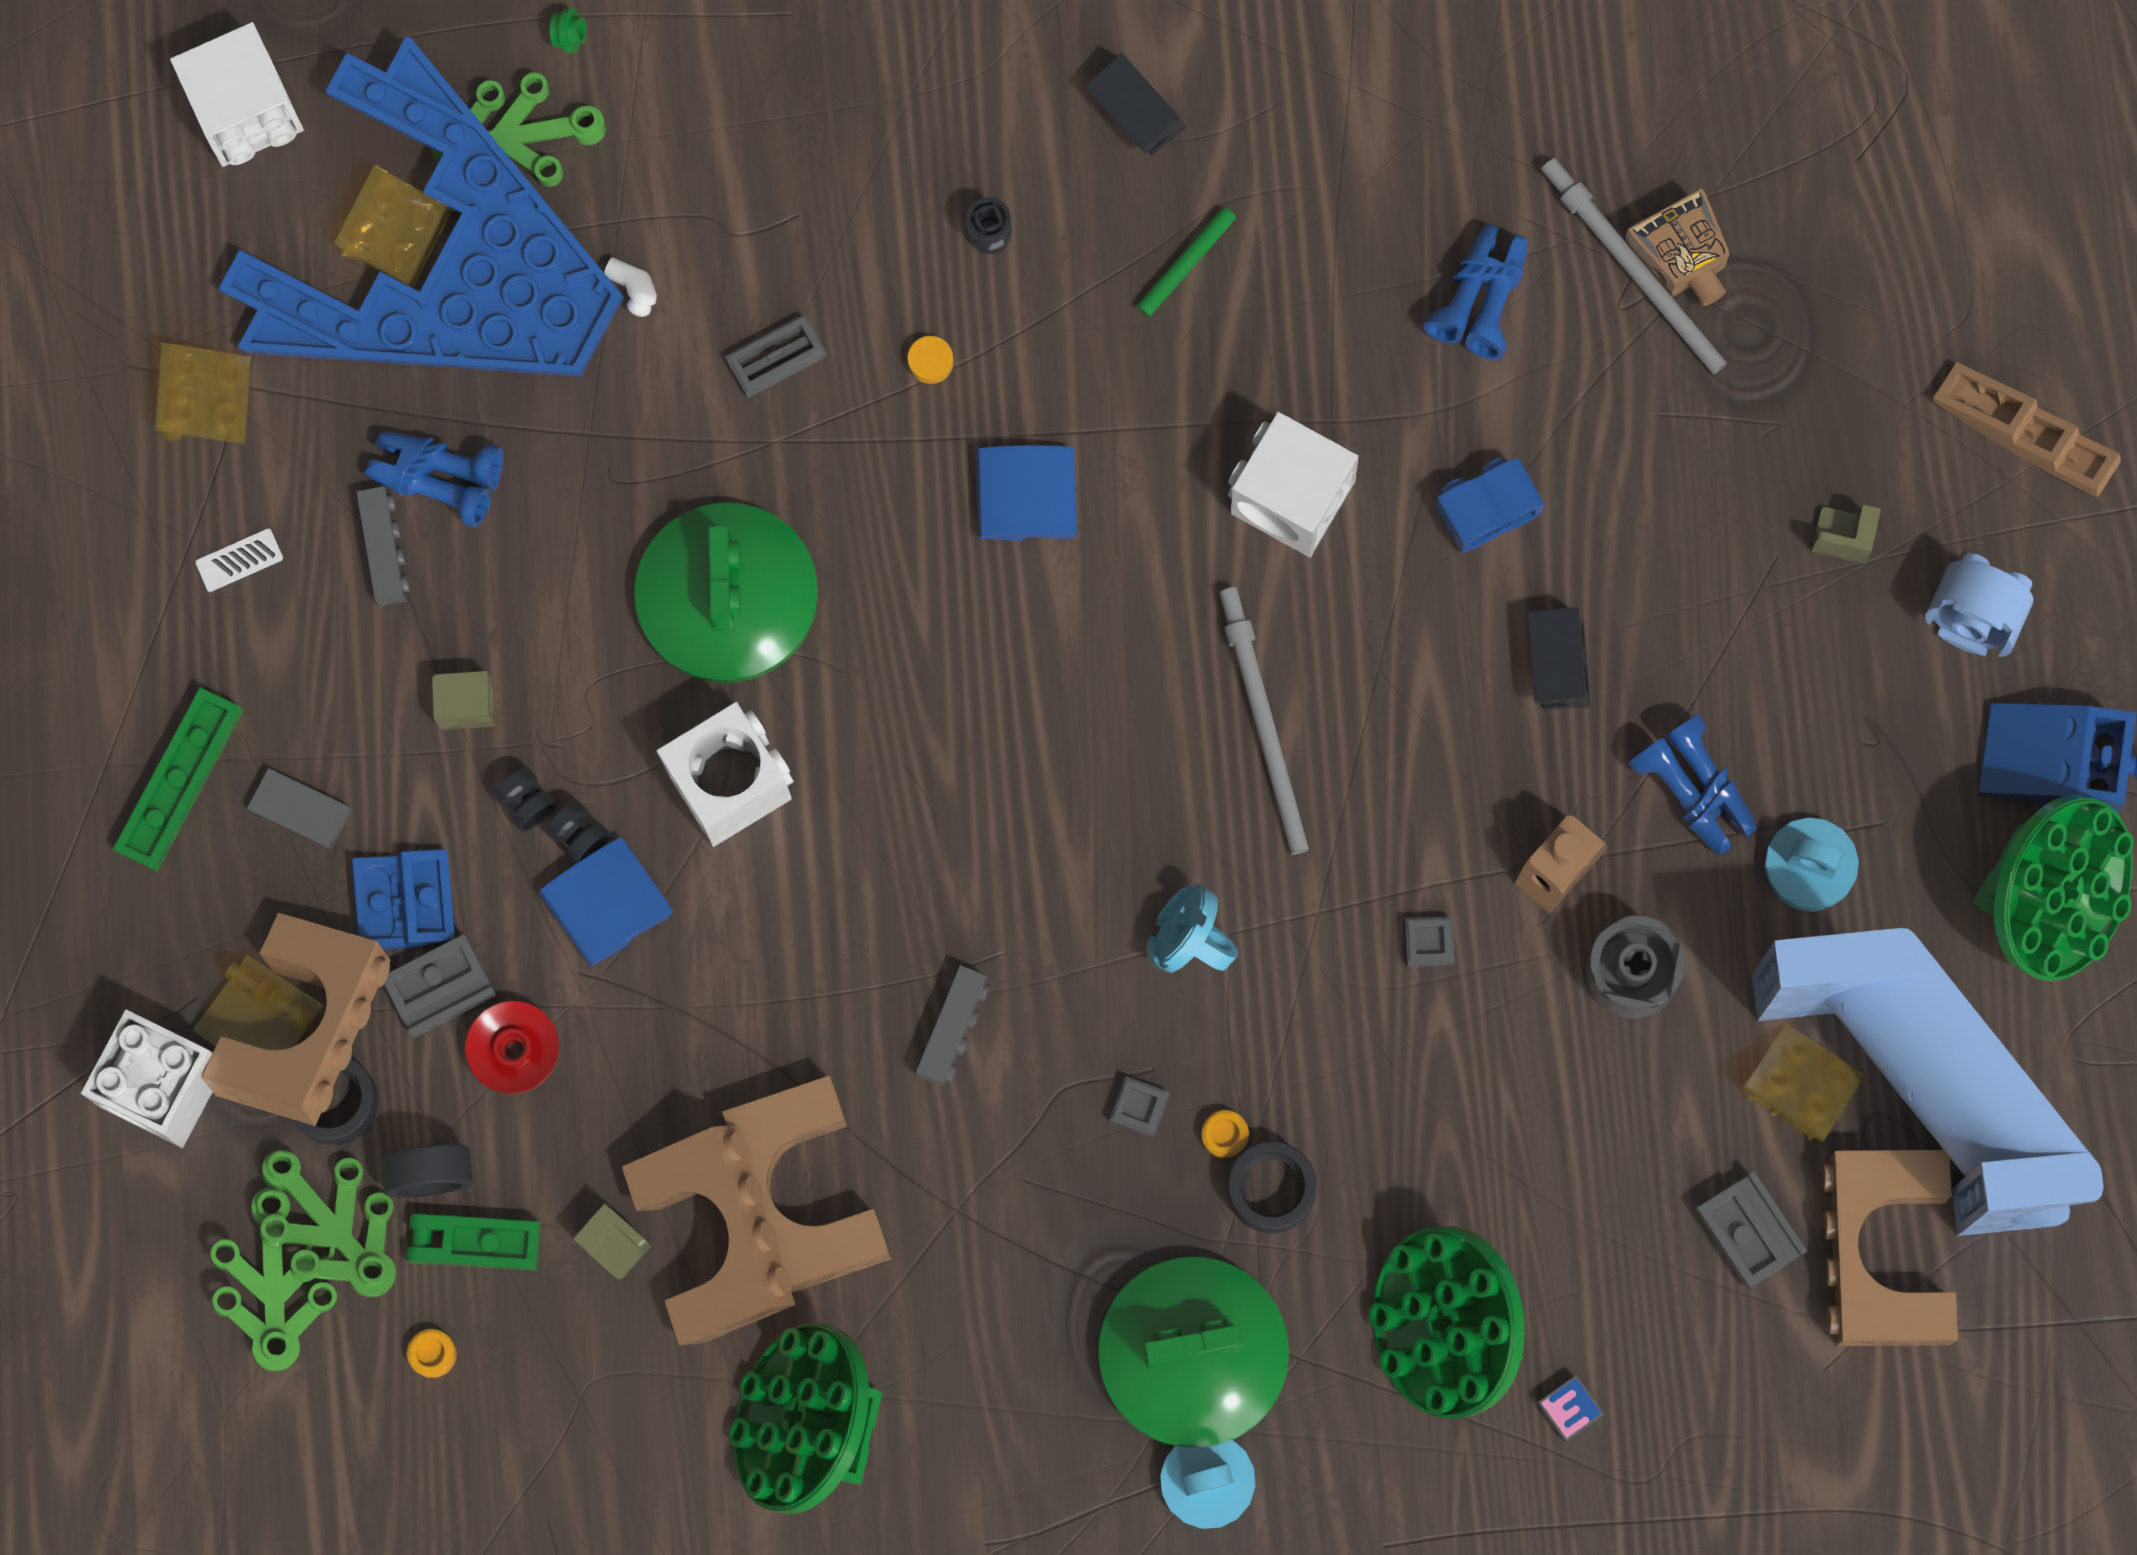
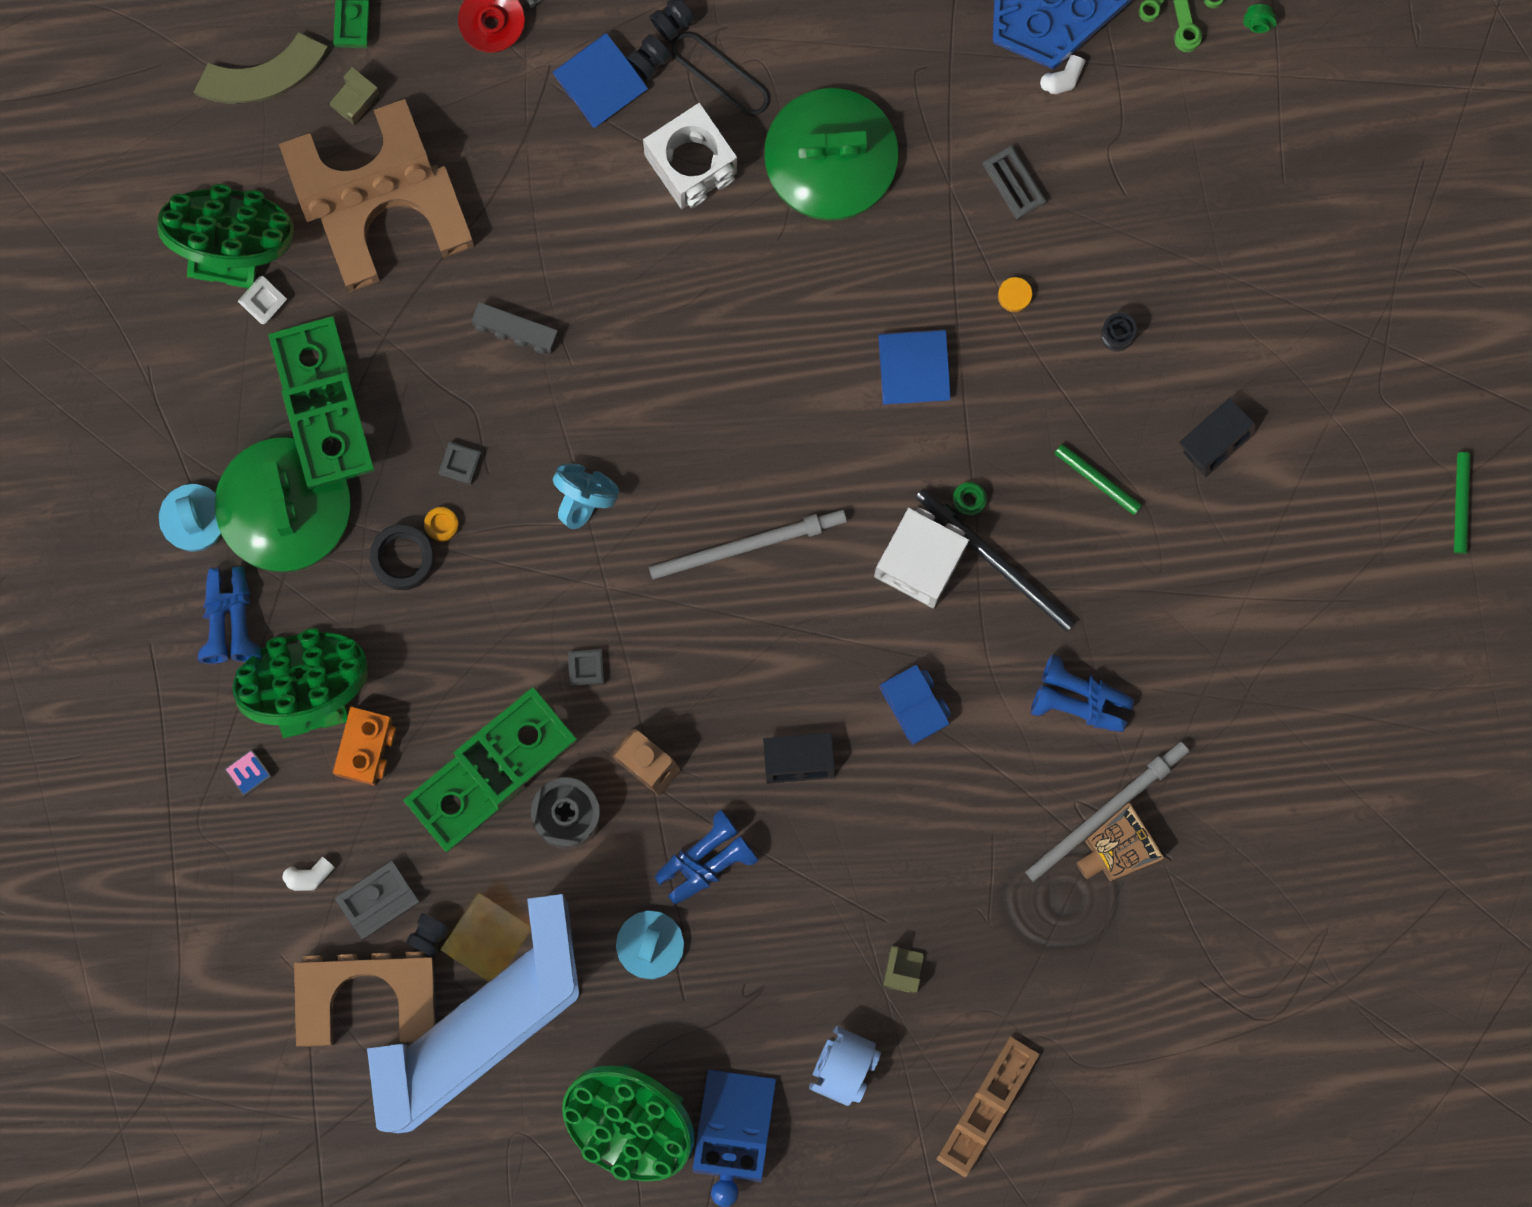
camera: 80 degrees right, 5 degrees up
(581, 1373) = (265, 80): none -> olive tile
(660, 699) = (729, 63): none -> black piece
(900, 1376) = (262, 300): none -> white plate
(1054, 1290) = (321, 403): none -> green bracket
(1205, 414) = (969, 488): none -> green plate
(1230, 455) = (945, 514): none -> black bar
(1334, 1446) = (216, 607): none -> blue piece
(1540, 1243) = (364, 746): none -> orange brick
(1576, 1066) = (490, 770): none -> green bracket
(1720, 1327) = (307, 879): none -> white arm
(1800, 1160) = (428, 935): none -> black wheel

